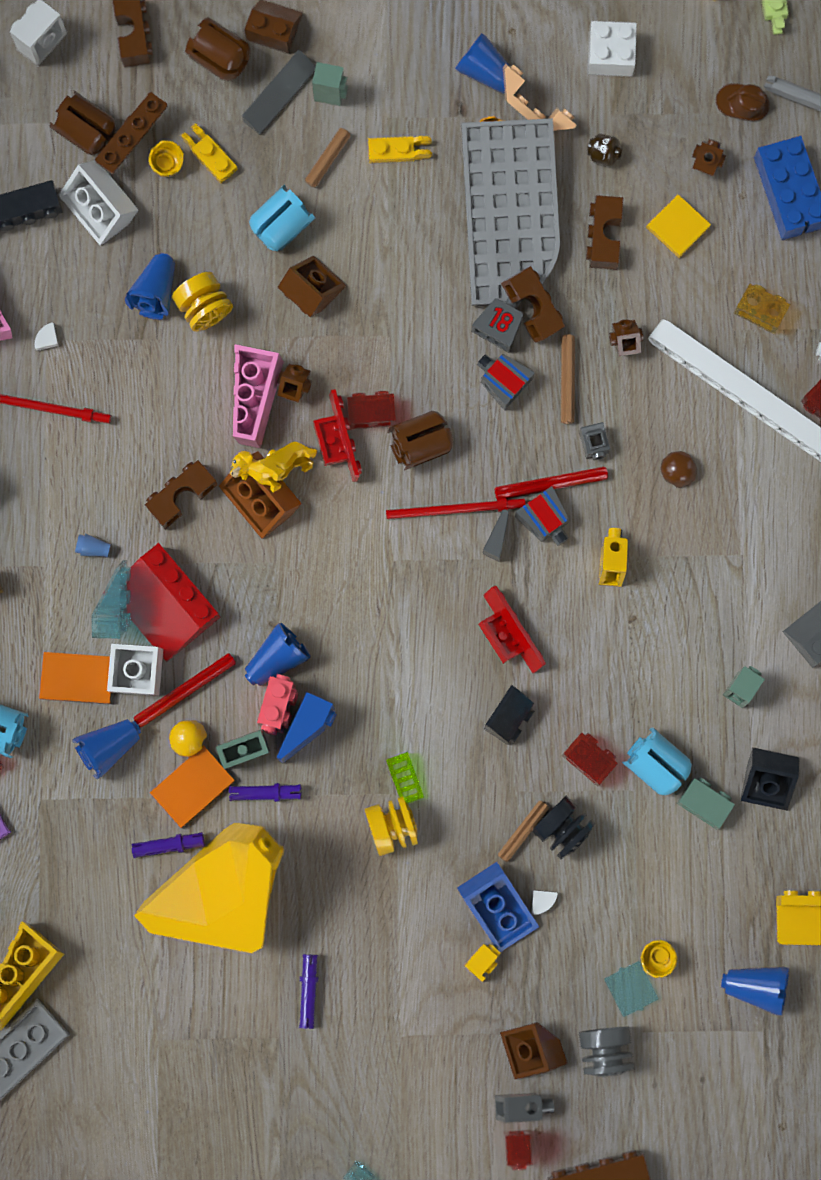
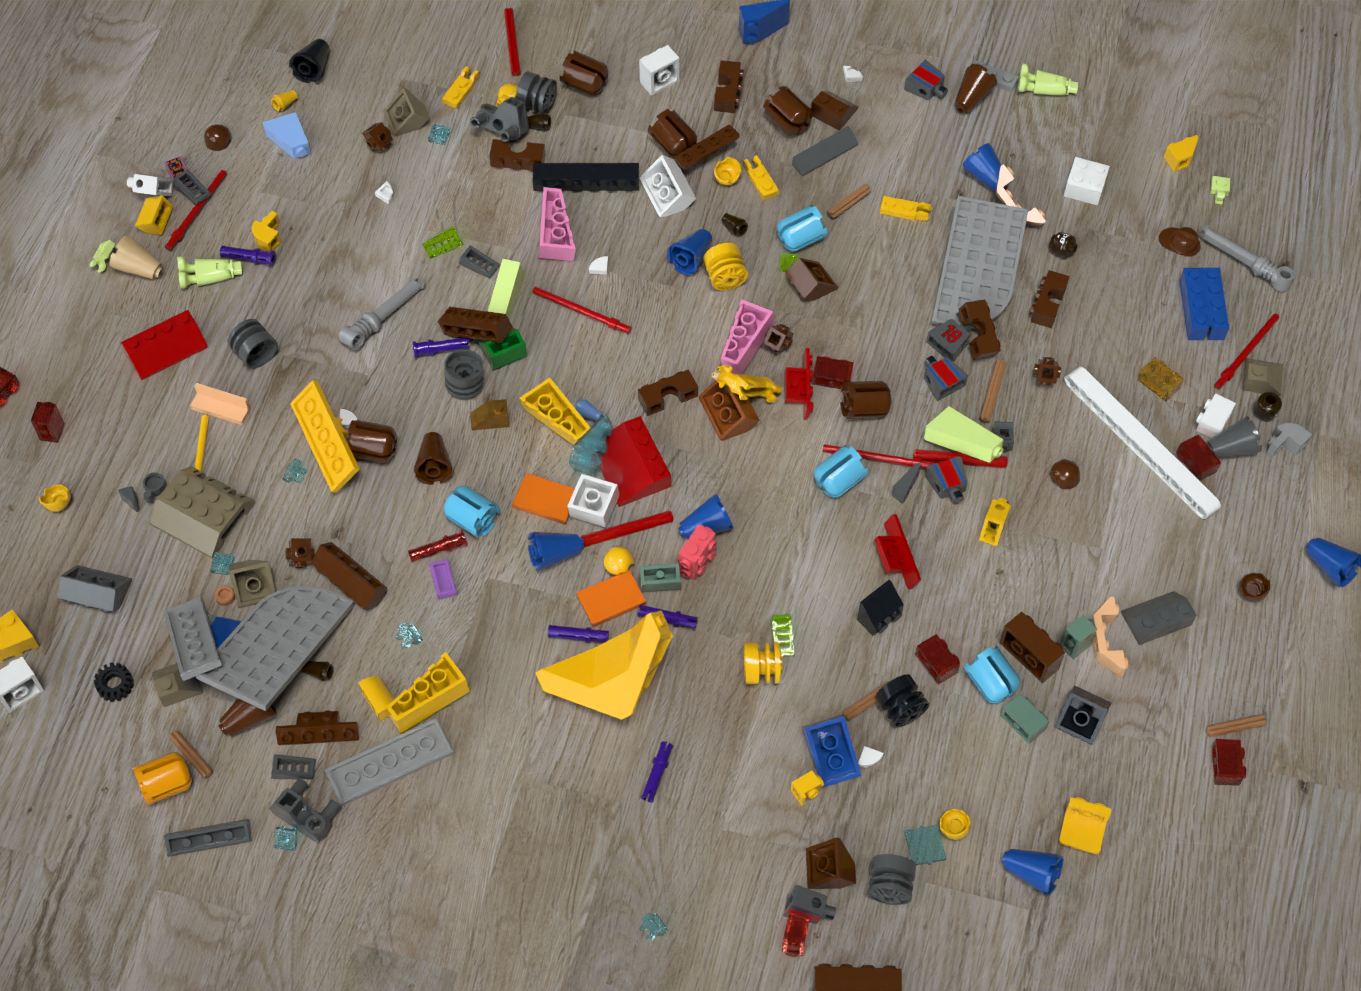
camera: 15 degrees right, 20 degrees down
(54, 561) = (555, 411): none -> yellow wedge
(196, 231) = (735, 224): none -> dark brown cone
(276, 266) = (787, 261): none -> clear neon green tile
(307, 725) = (715, 574): blue slope -> none
(329, 84) = (864, 151): sand green brick -> none
(424, 554) = (840, 472): none -> medium azure cylinder
(548, 456) = (963, 435): none -> yellowish green slope
(678, 226) = (1108, 310): yellow tile -> none
(695, 715) = (1032, 647): none -> reddish brown brick
(702, 163) = (1139, 271): reddish brown brick -> none
(790, 701) = (1111, 660): none -> light nougat slope

